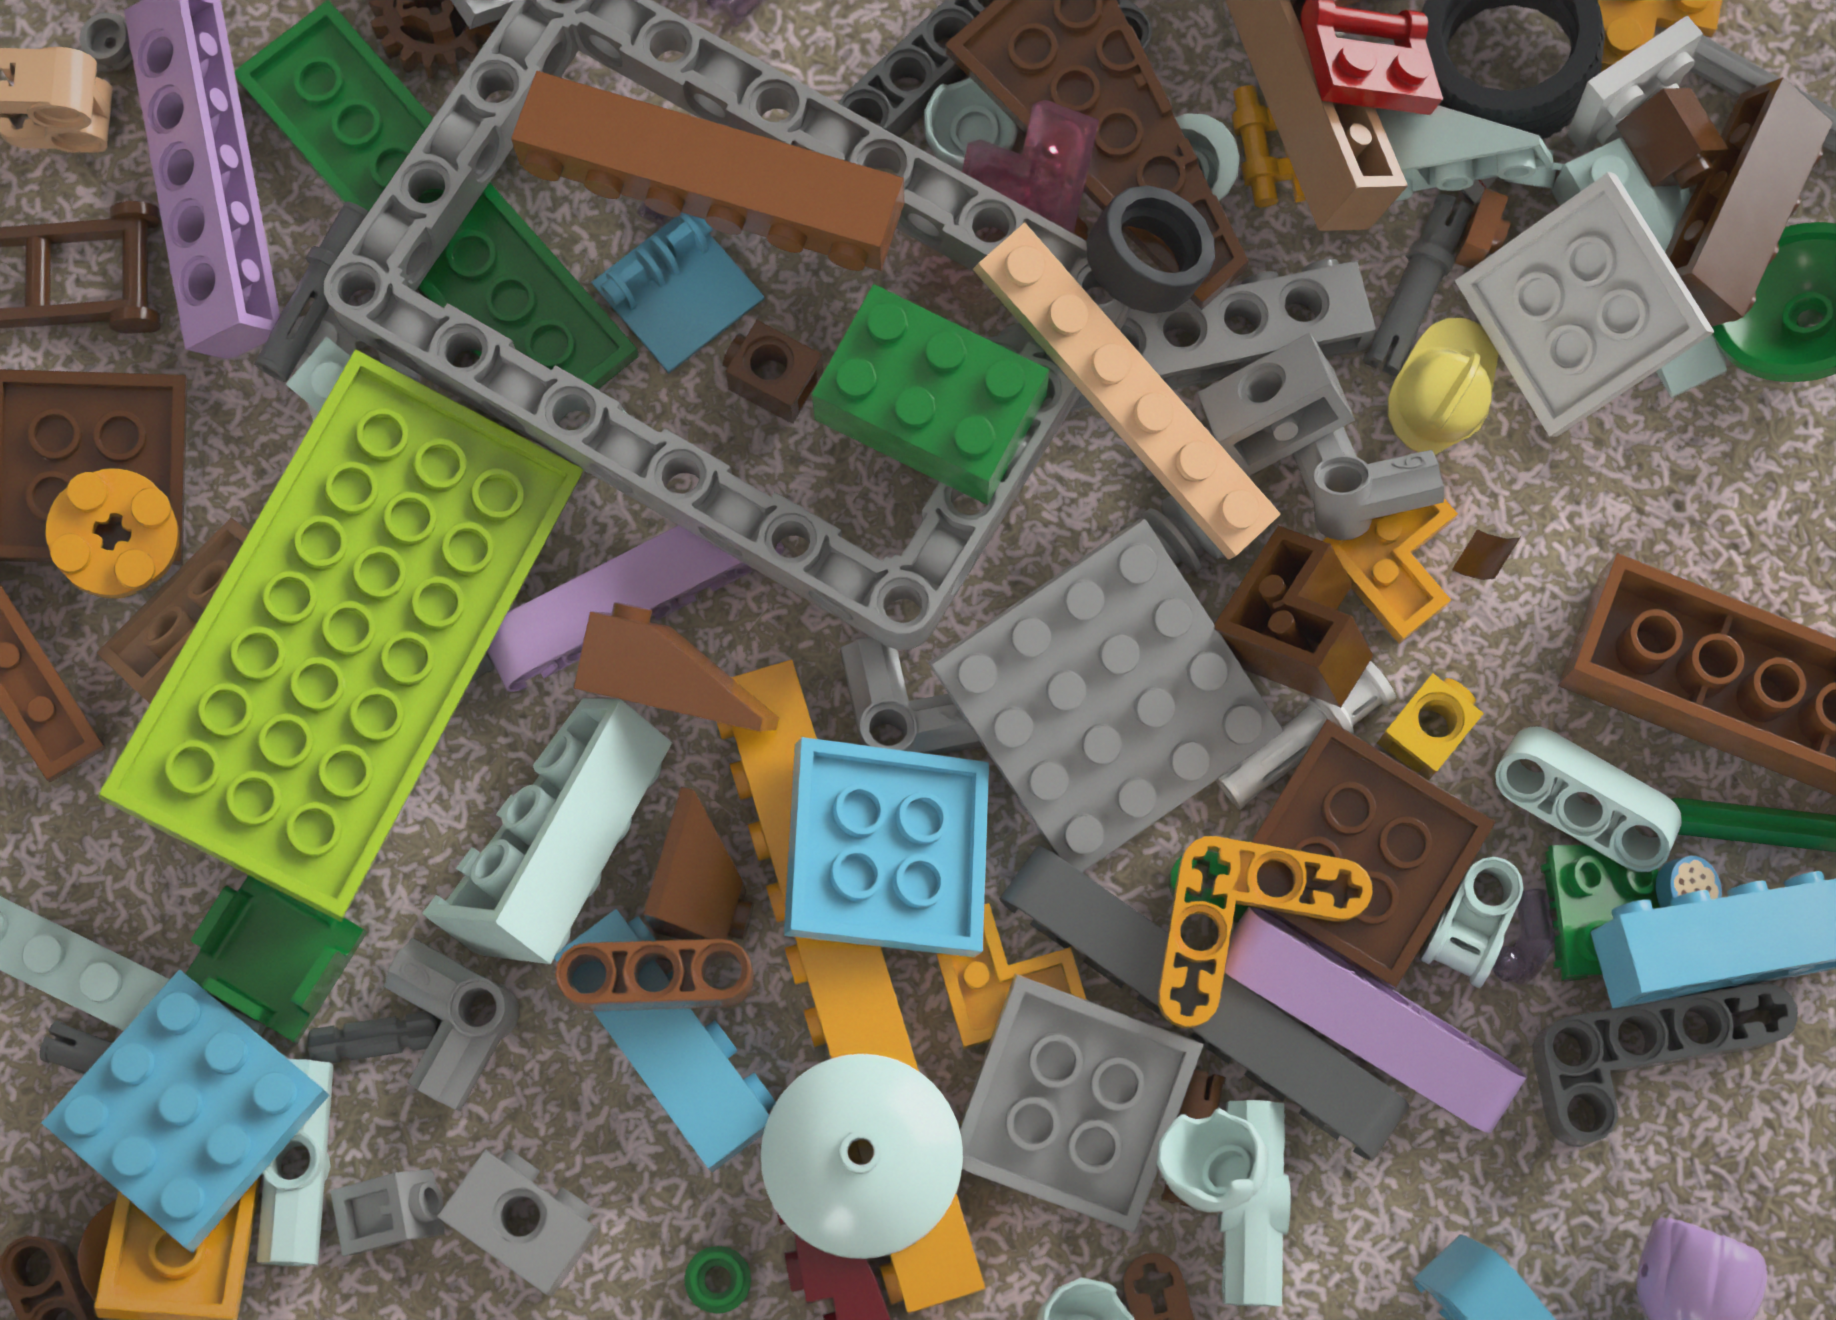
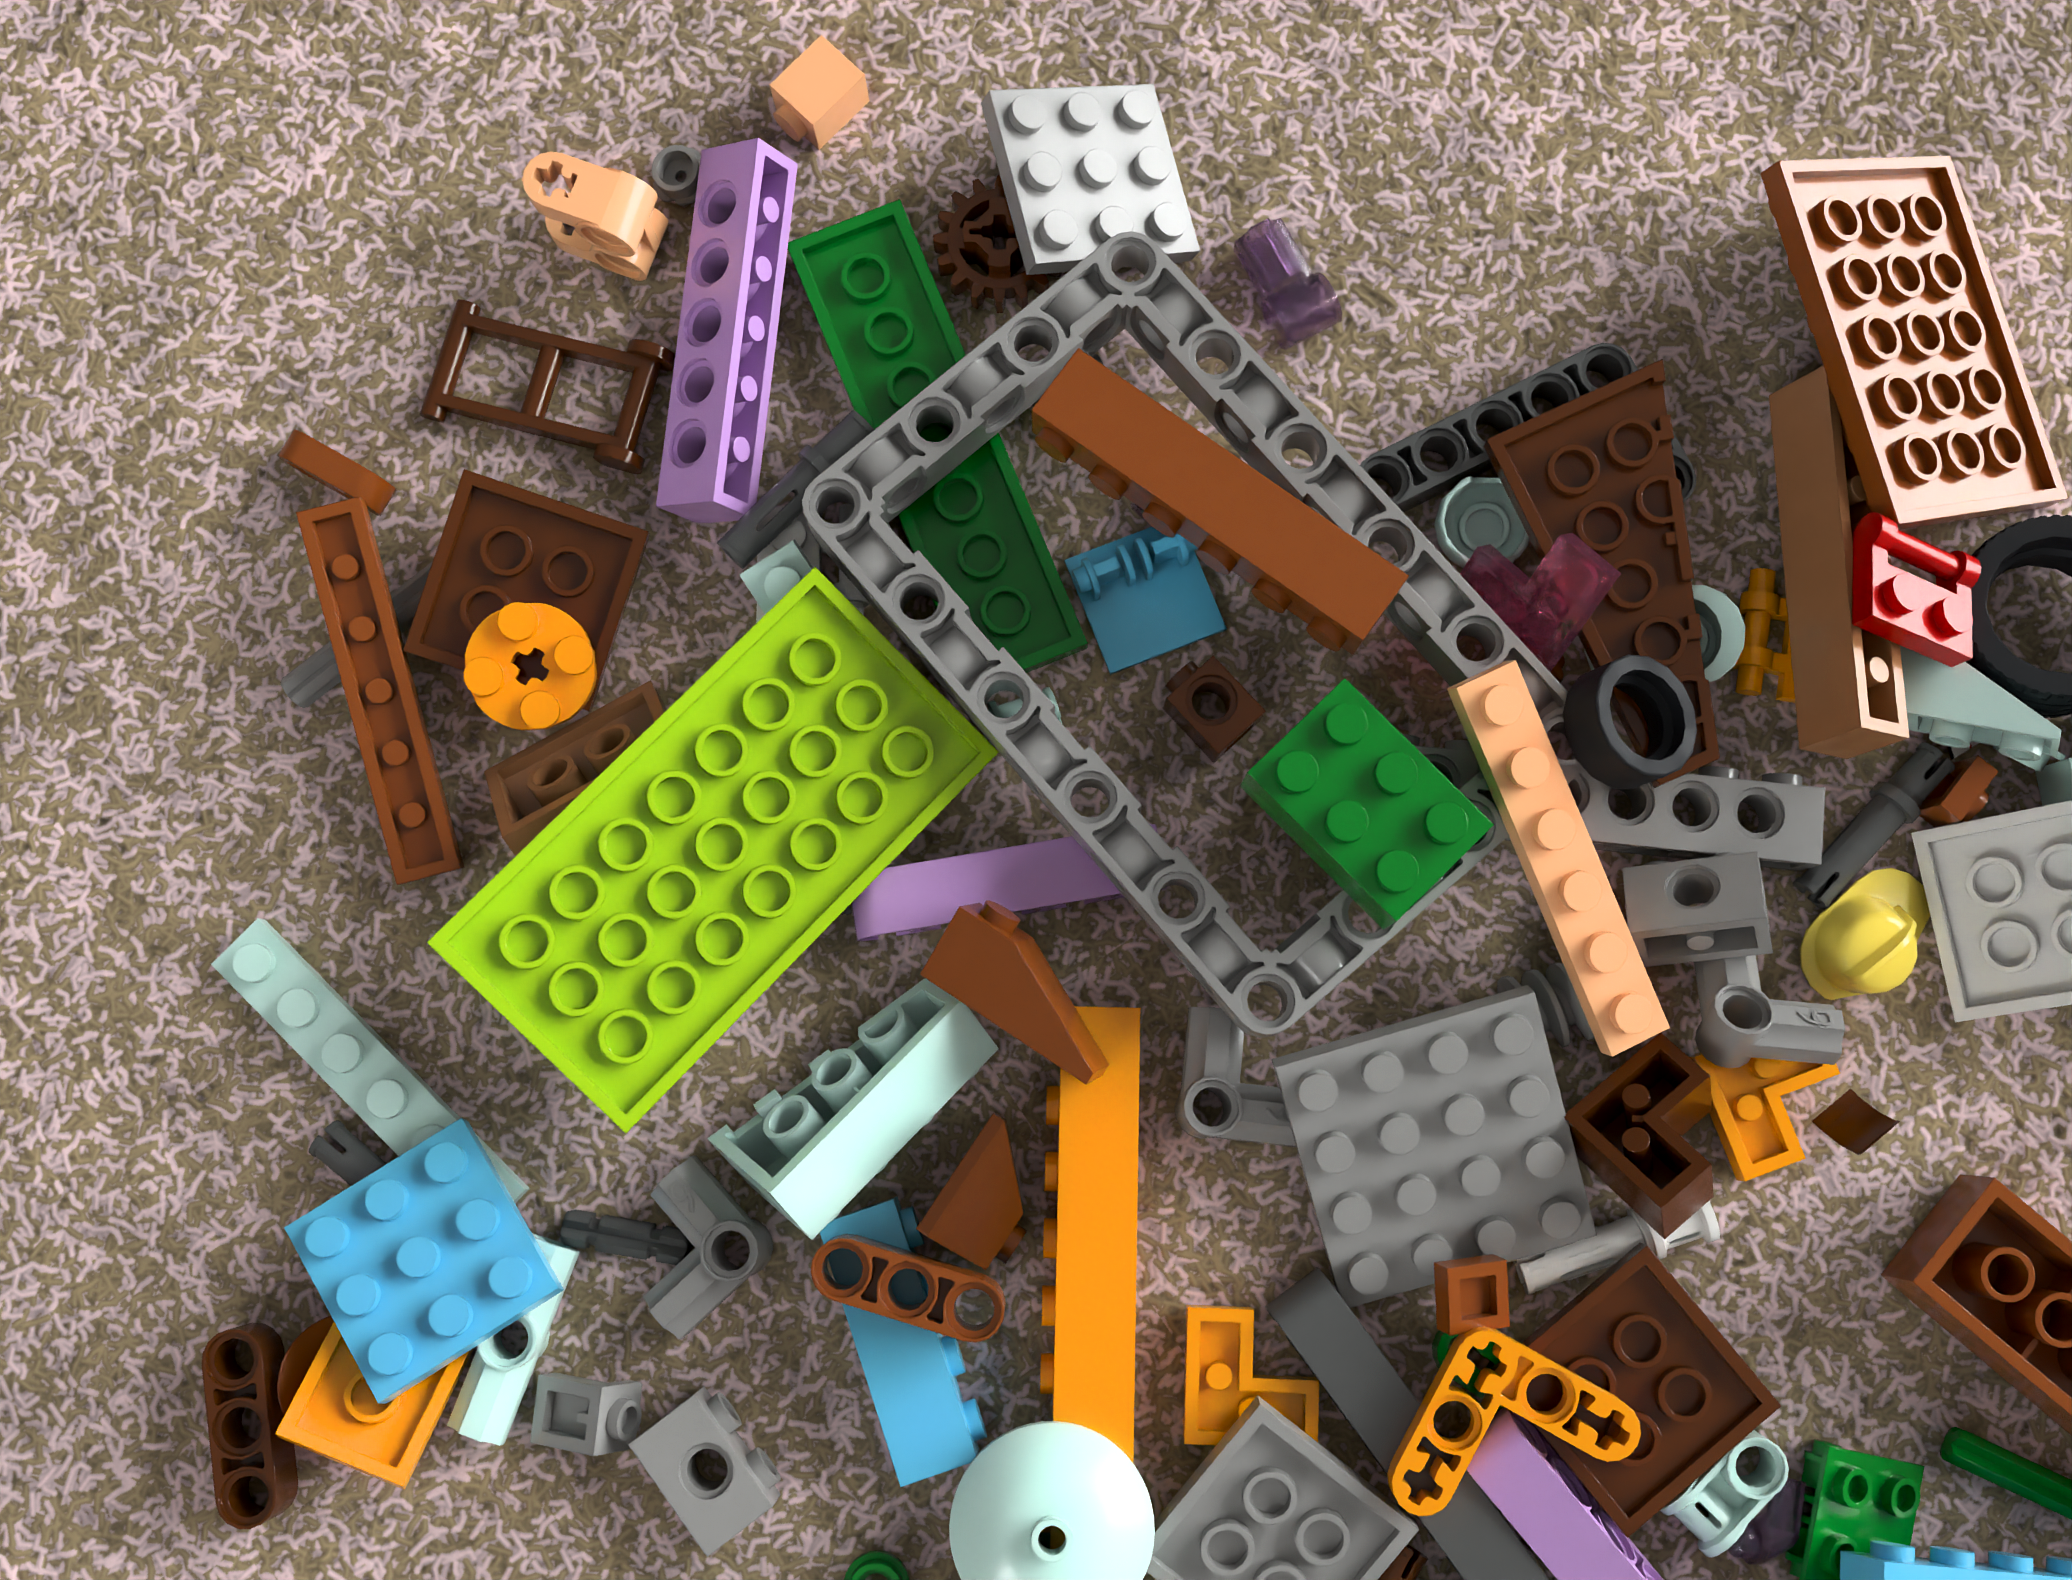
camera: 20 degrees right, 5 degrees up
(271, 955) = (547, 1133): green panel -> none
(887, 848) = (1173, 1231): medium azure plate -> none
(1181, 815) = (1471, 1294): none -> dark orange plate
(1414, 747) = (1715, 1279): yellow brick -> none
(1602, 827) = (1893, 1438): light aqua beam -> none
(1686, 876) = (1946, 1522): tile -> none

